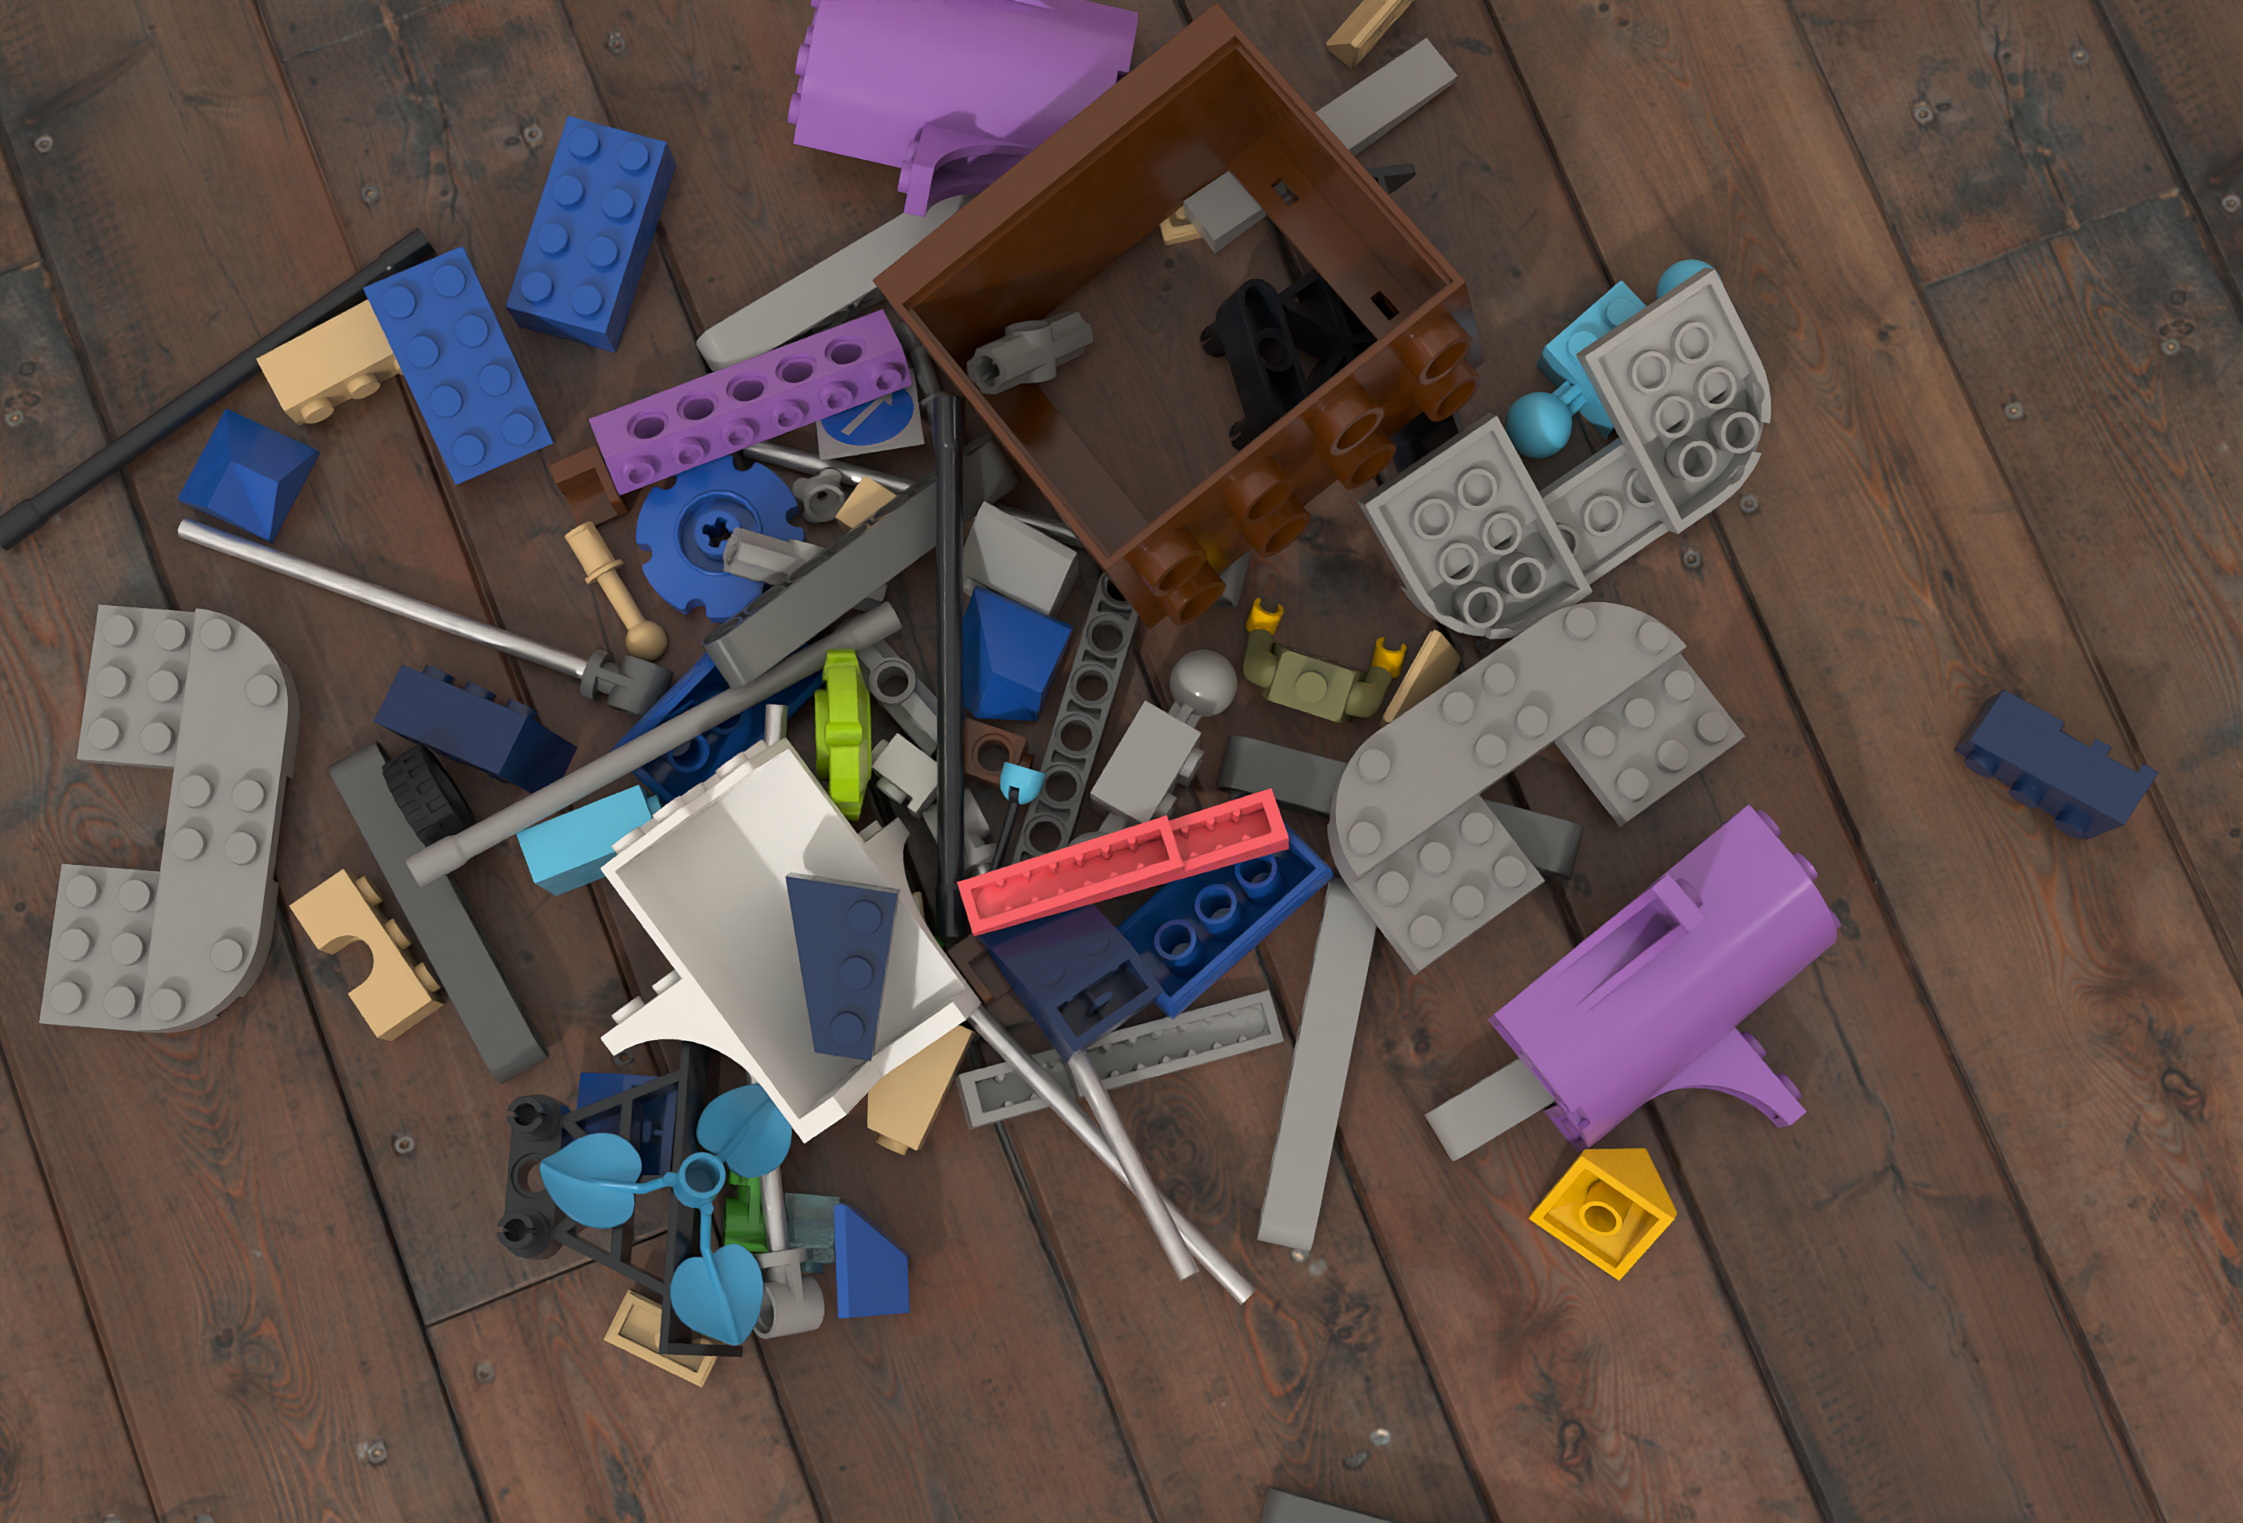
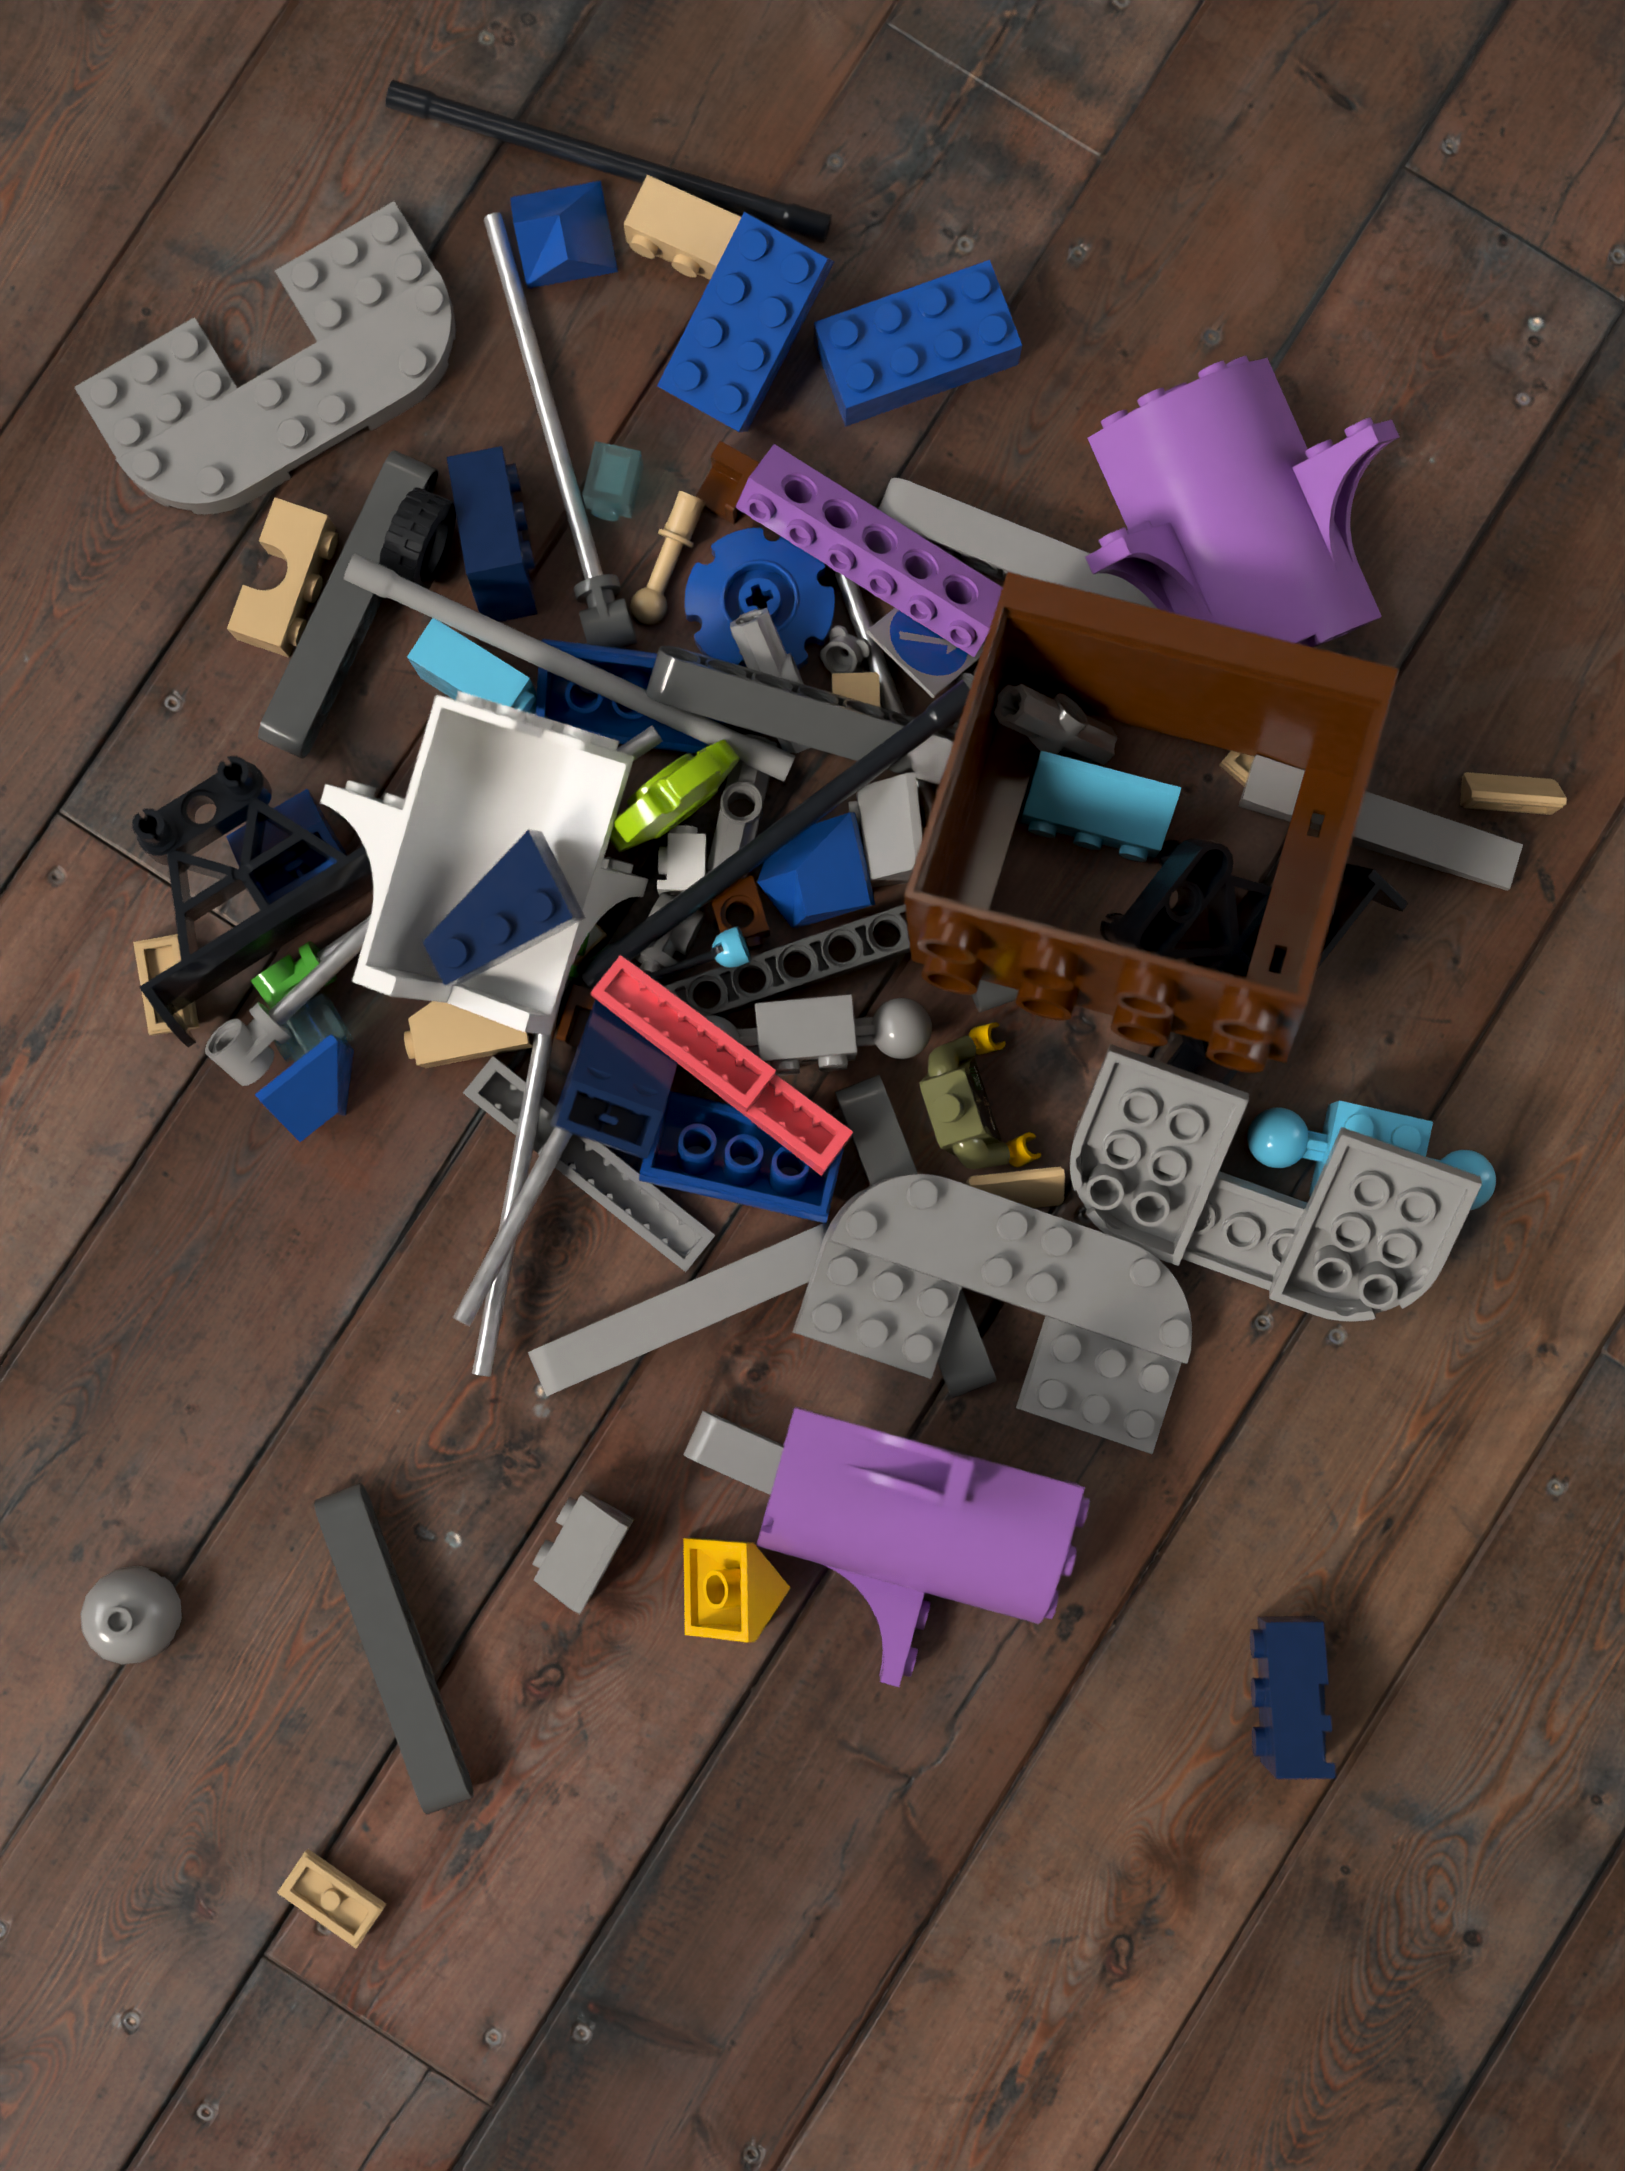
camera: 55 degrees right, 5 degrees up
(509, 590) = (612, 481): none -> clear light blue brick
(596, 1185) = (225, 856): dark azure plant -> none
(1129, 368) = (1098, 806): none -> medium azure slope
(1479, 1318) = (582, 1550): none -> light grey slope

